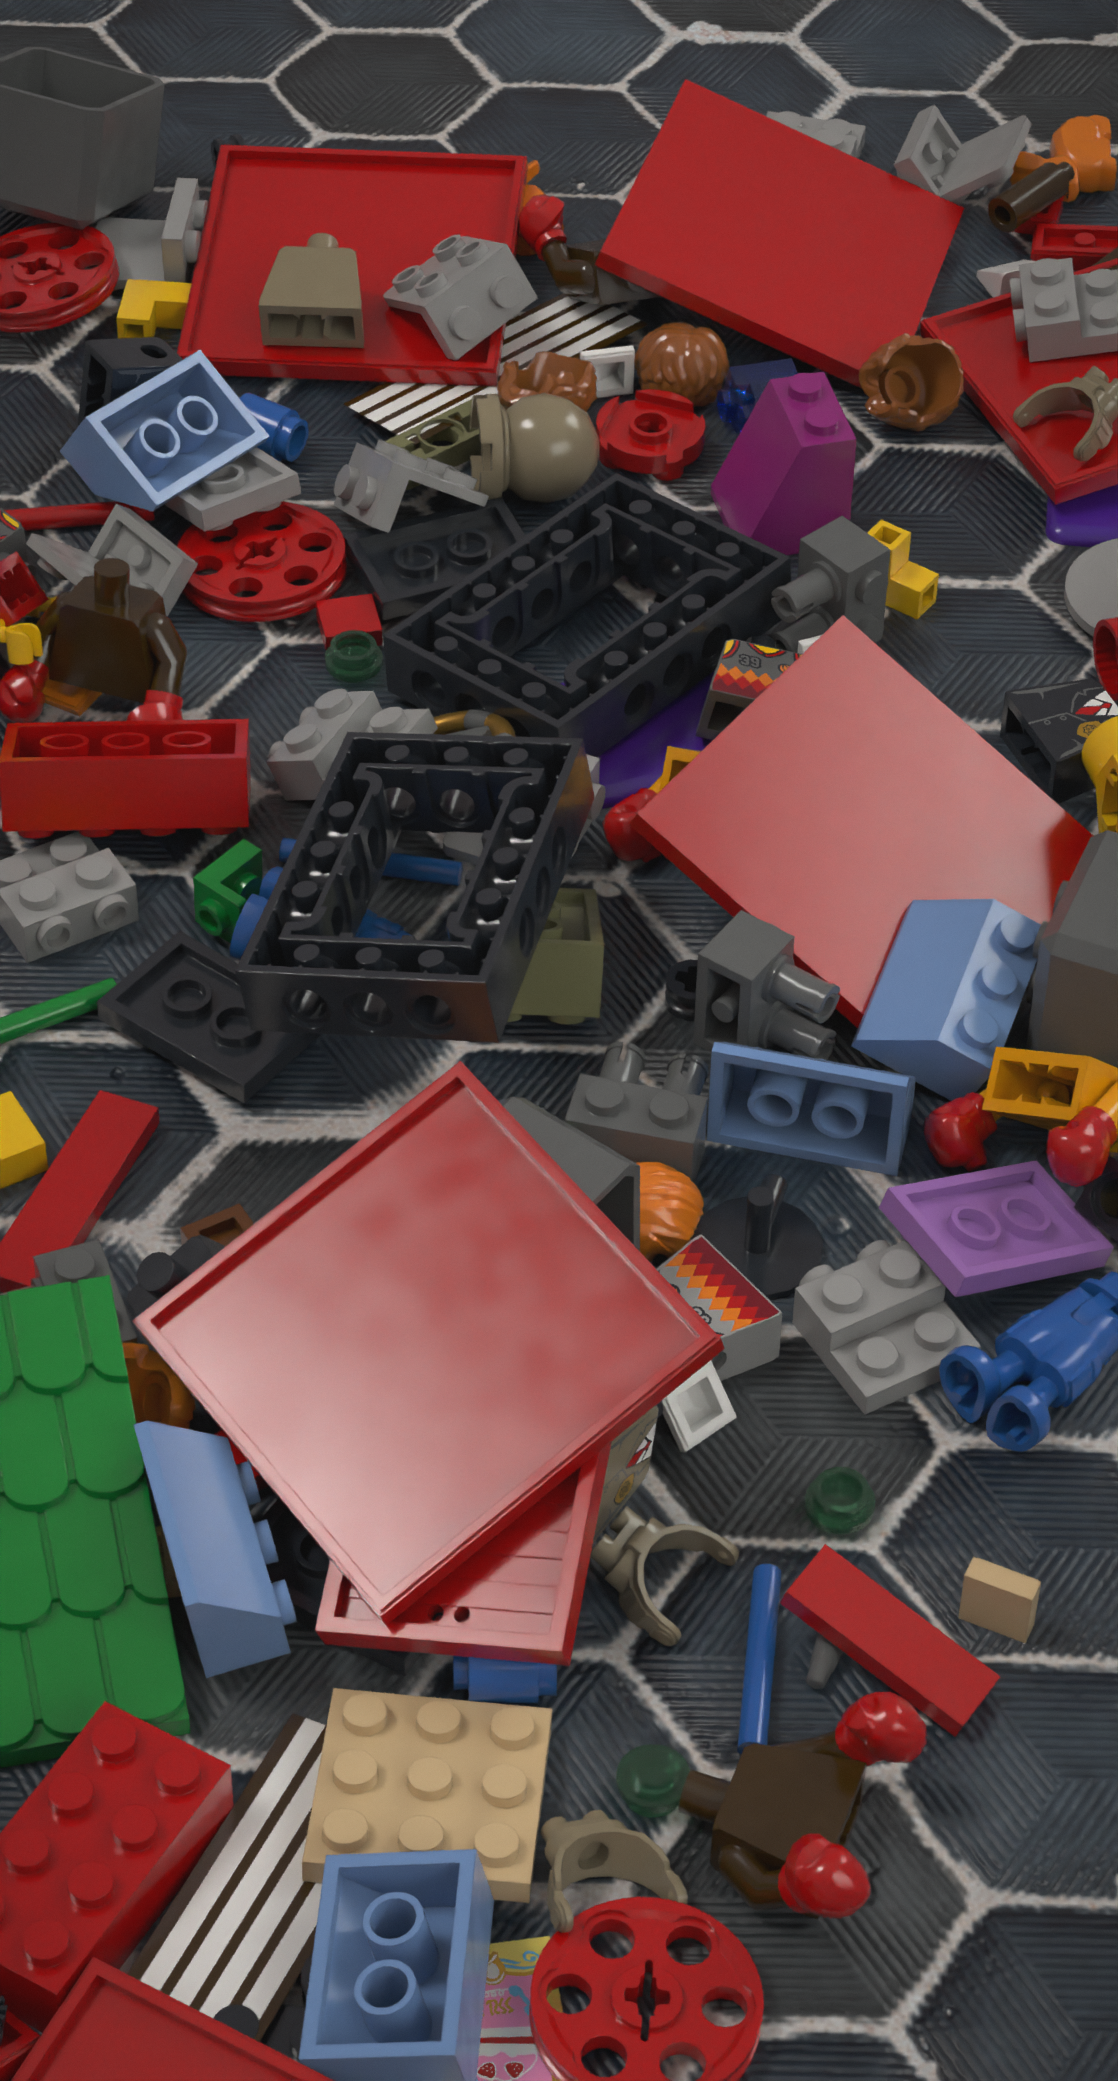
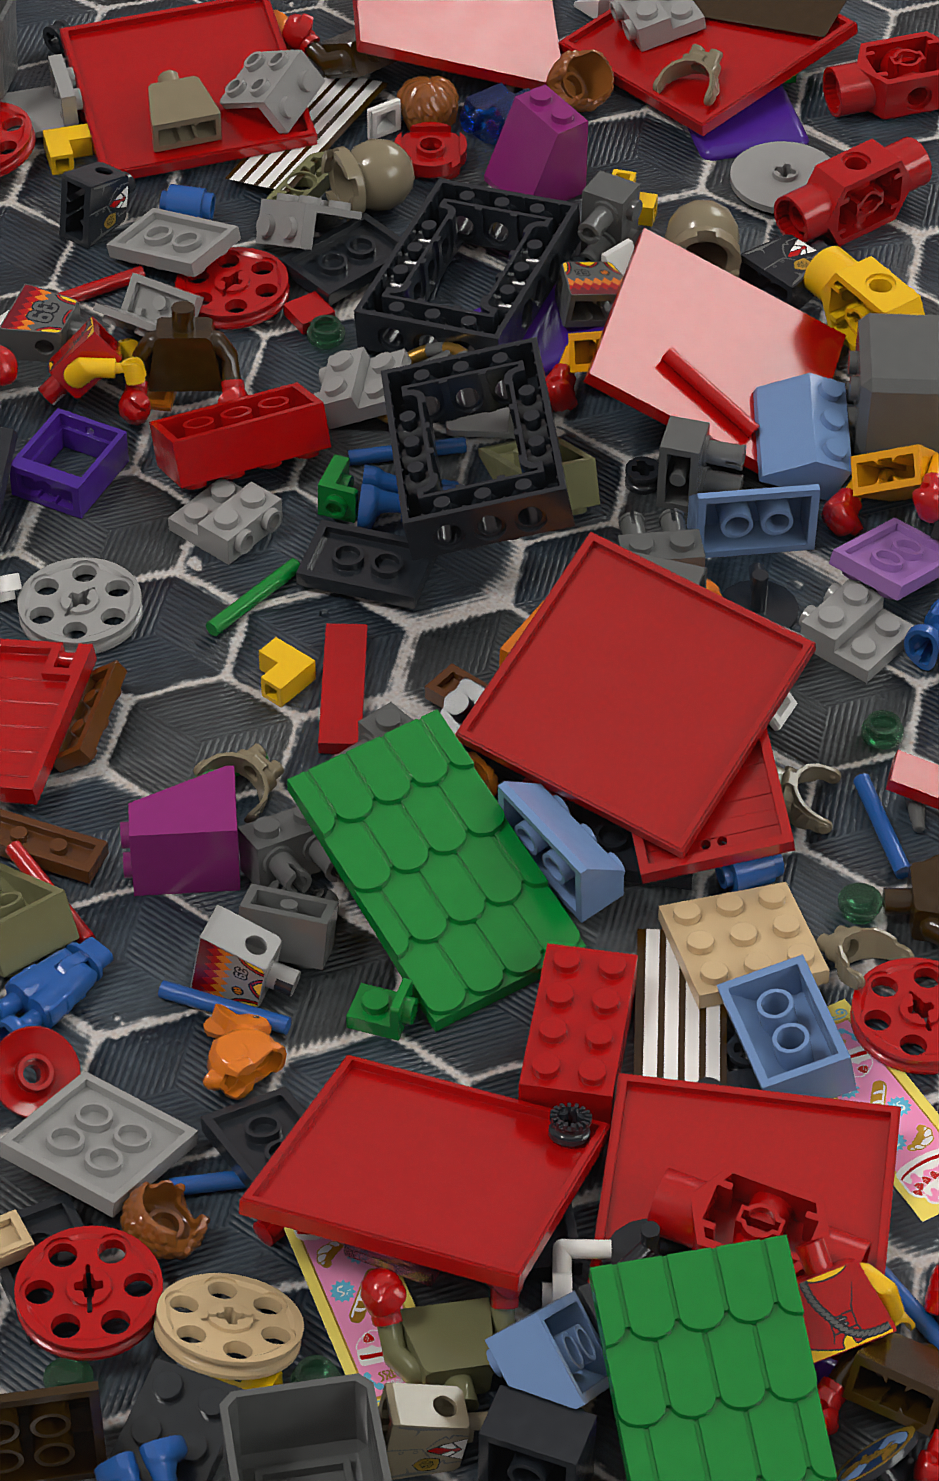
camera: 20 degrees left, 0 degrees up
(163, 436) = (141, 224): medium blue slope -> none
(550, 375) = (355, 129): dark orange hair -> none
(829, 890) = (710, 392): none -> red bar
(964, 656) = (707, 232): none -> dark tan tile

